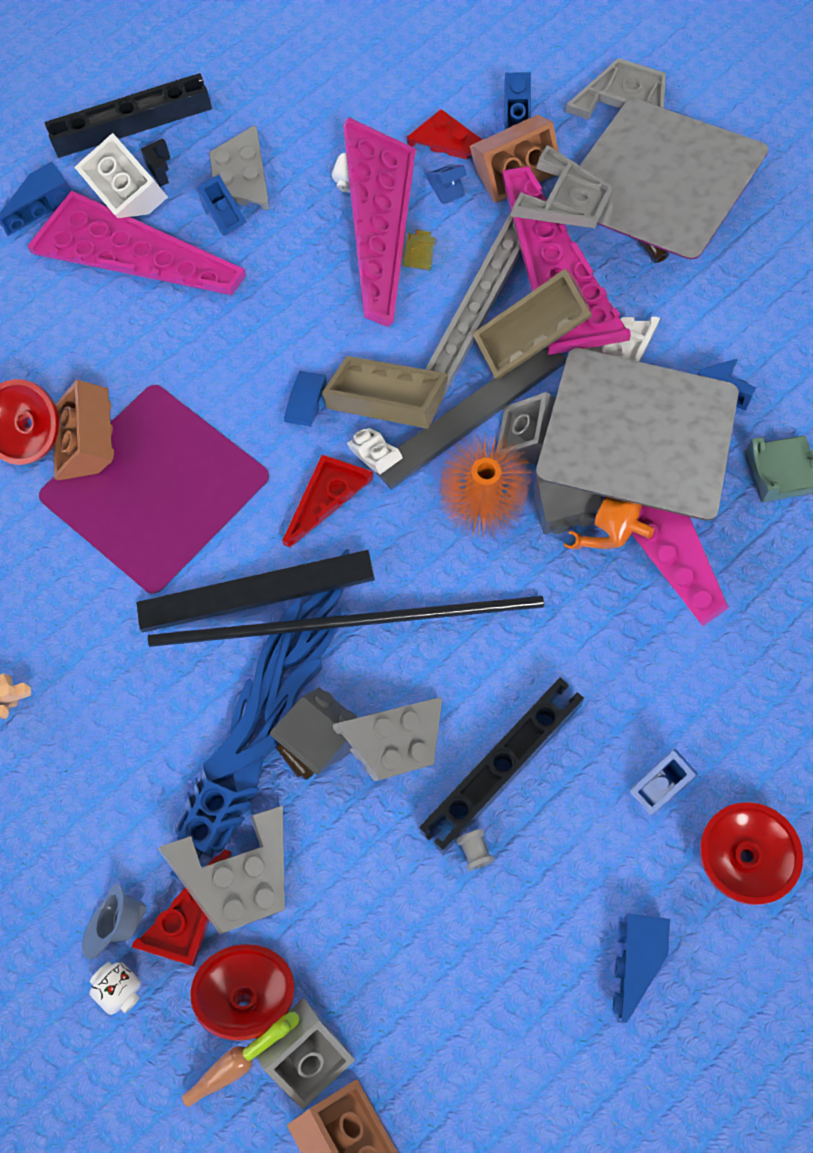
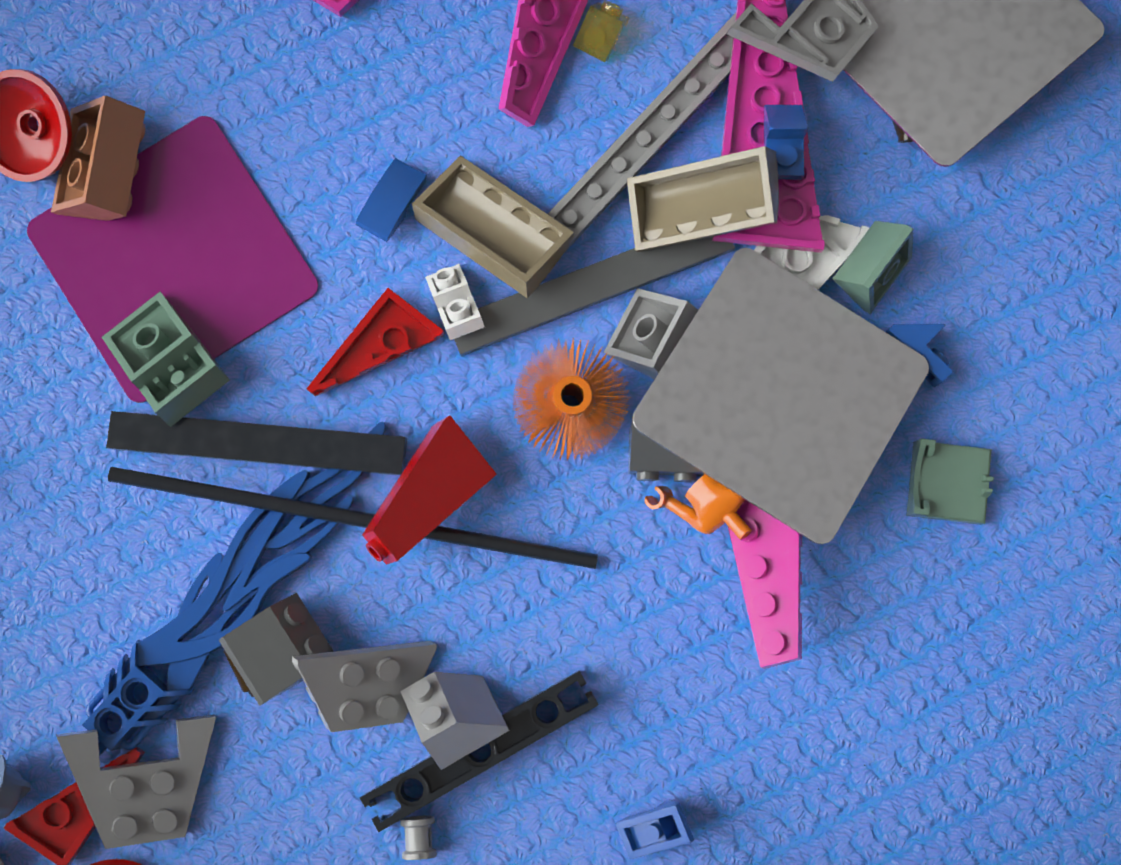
camera: 10 degrees right, 15 degrees up
(169, 551) = (165, 359): none -> sand green slope
(399, 578) = (431, 487): none -> red slope
(472, 741) = (453, 715): none -> light grey slope
(578, 263) = (785, 133): none -> blue slope
(671, 335) = (876, 263): none -> sand green slope

